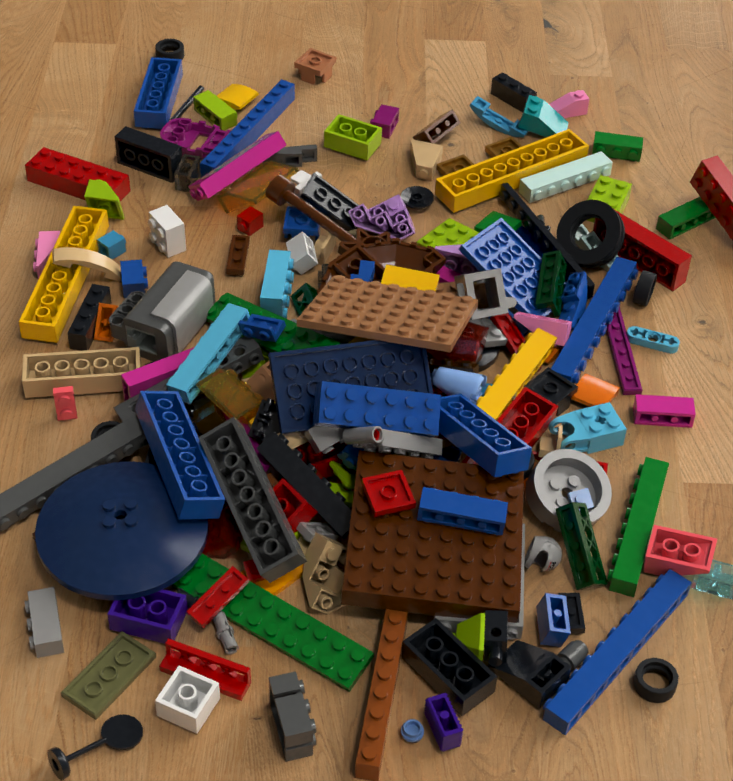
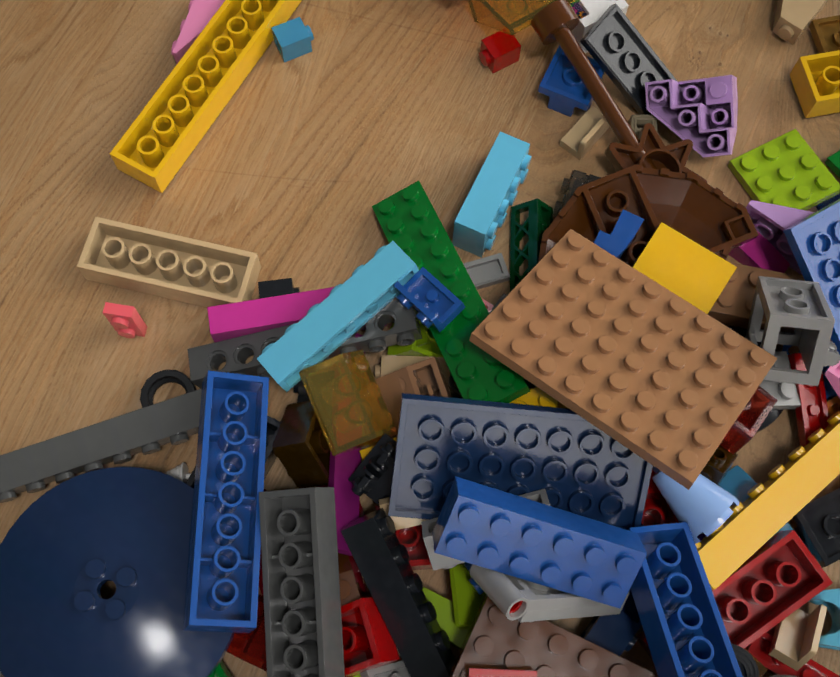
camera: 20 degrees right, 25 degrees up
(68, 255) = (241, 66): tan slope -> none
(83, 327) = (216, 165): black brick -> none
(102, 328) = (236, 184): orange slope -> none
(133, 276) = (300, 110): blue brick -> none
(167, 231) = (372, 40): white brick -> none
(167, 314) = (319, 199): piece -> none
(238, 255) = (461, 108): reddish brown plate -> none
(302, 252) = (552, 136): white brick -> none
(417, 197) = (764, 68): black dish -> none

